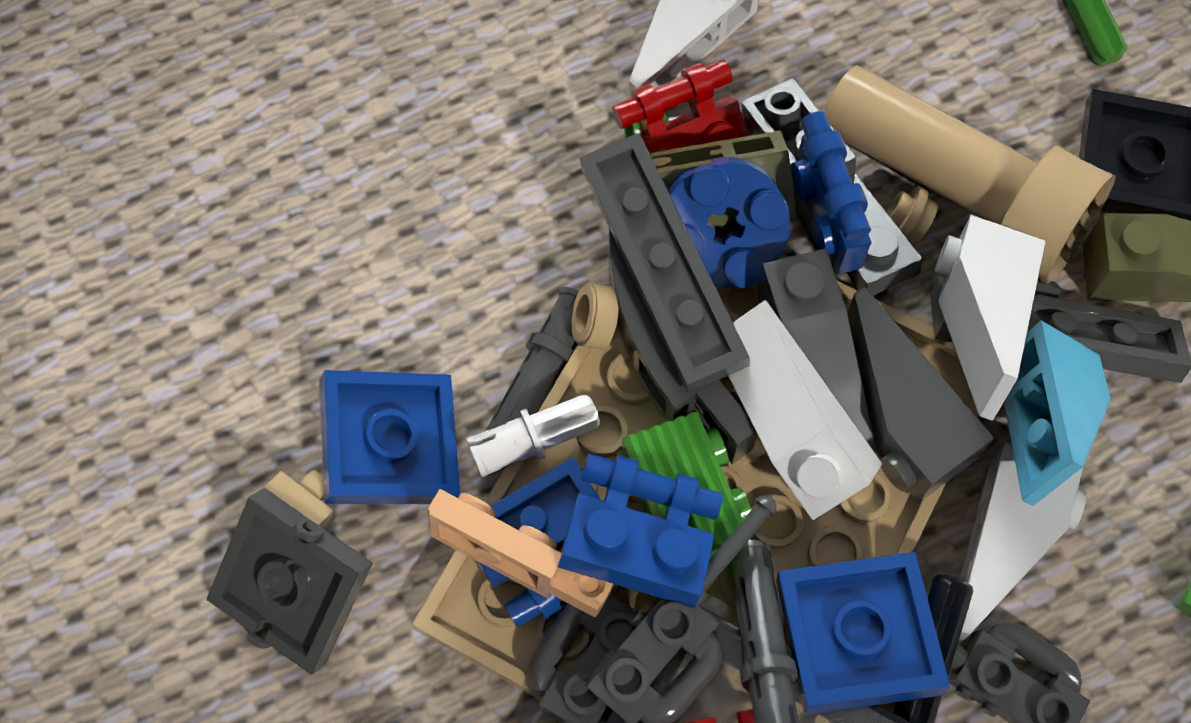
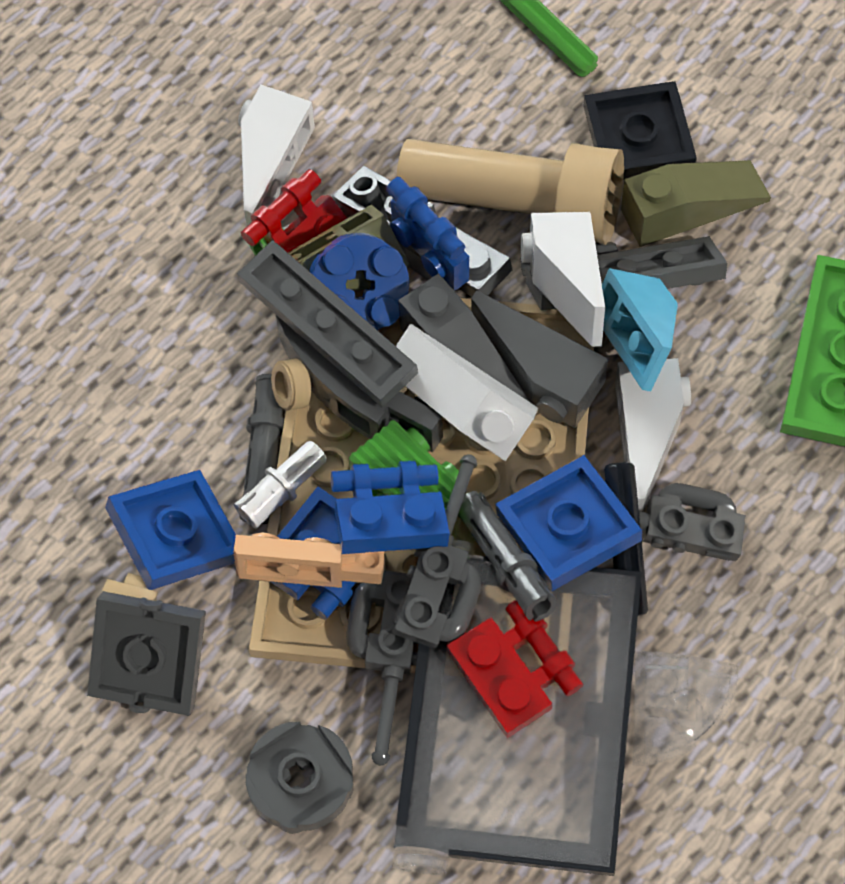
camera: 20 degrees left, 5 degrees down
(913, 213) = (490, 230): tan plate -> none

